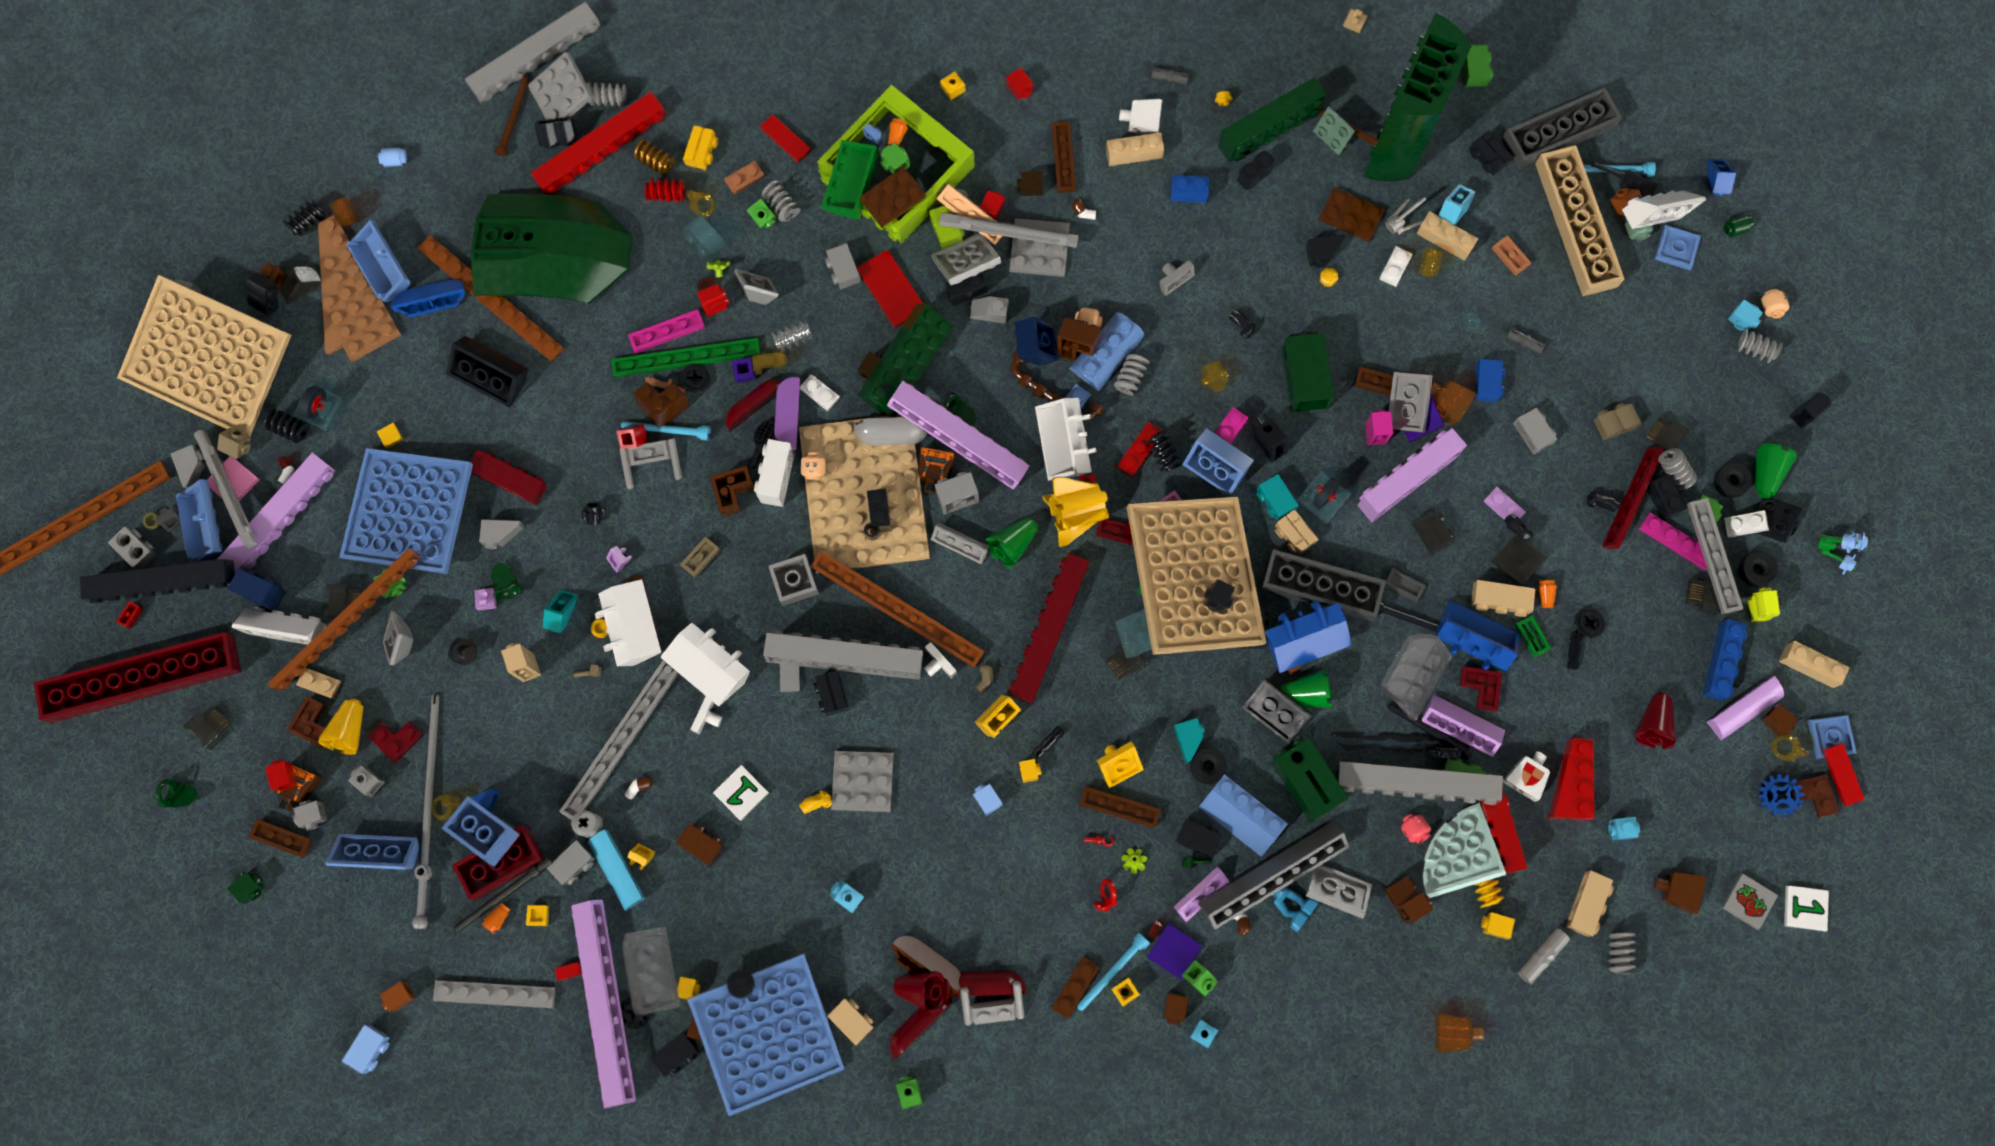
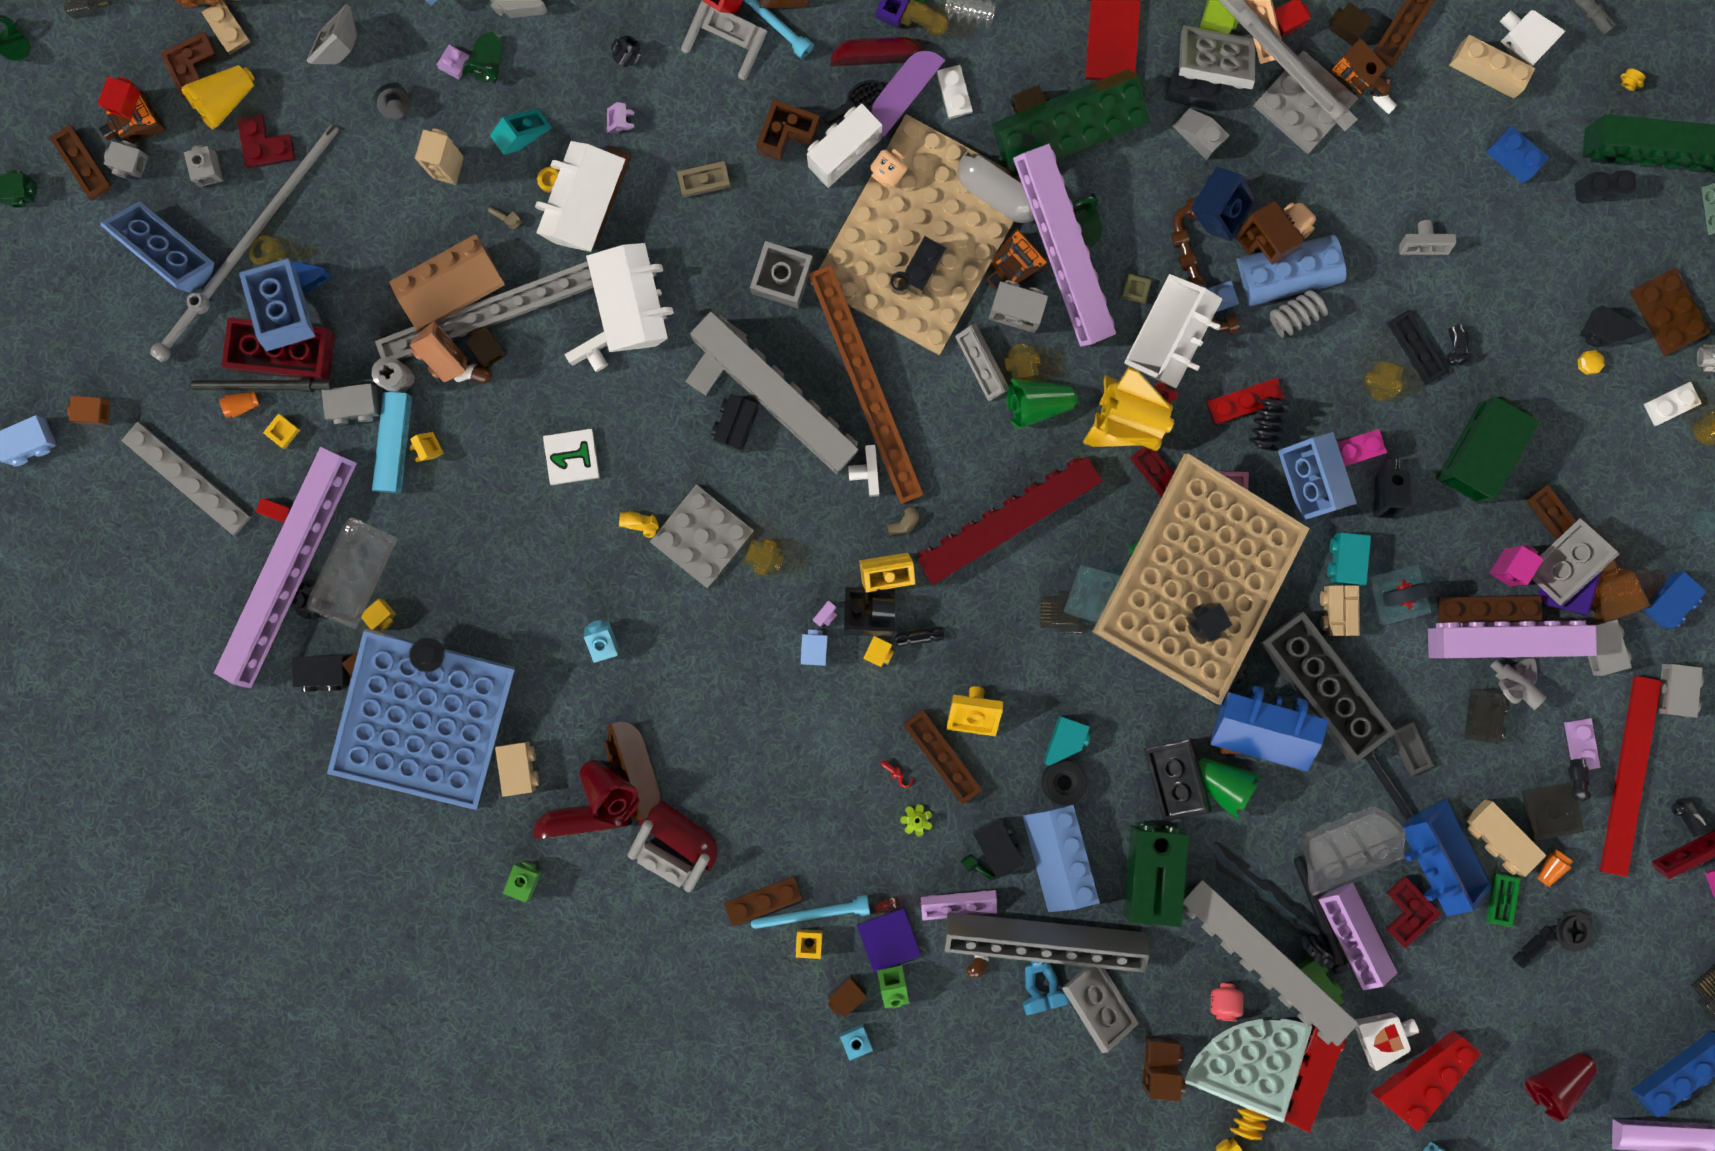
camera: 35 degrees right, 10 degrees up
(581, 739) = (447, 283): none -> medium nougat slope
(607, 787) = (439, 352): none -> nougat slope
(634, 762) = (485, 347): none -> dark brown brick
(700, 844) = (492, 479): reddish brown brick -> none
(912, 764) = (764, 557): none -> clear yellow brick
(979, 771) = (826, 615): none -> lavender plate
(985, 524) = (1022, 362): none -> clear yellow brick
(1005, 749) = (869, 612): none -> black plate
(1021, 430) = (1136, 288): none -> olive tile
(1058, 205) = (1361, 69): none -> reddish brown torso
(1107, 902) = (859, 841): red piece -> none
(1218, 342) = (1417, 347): none -> black tile
(1384, 465) = (1489, 609): none -> reddish brown plate
(1436, 495) = (1519, 681): none -> light grey plant
(1475, 437) = (1611, 649): none -> light grey brick
(1548, 504) = (1630, 776): none -> red tile

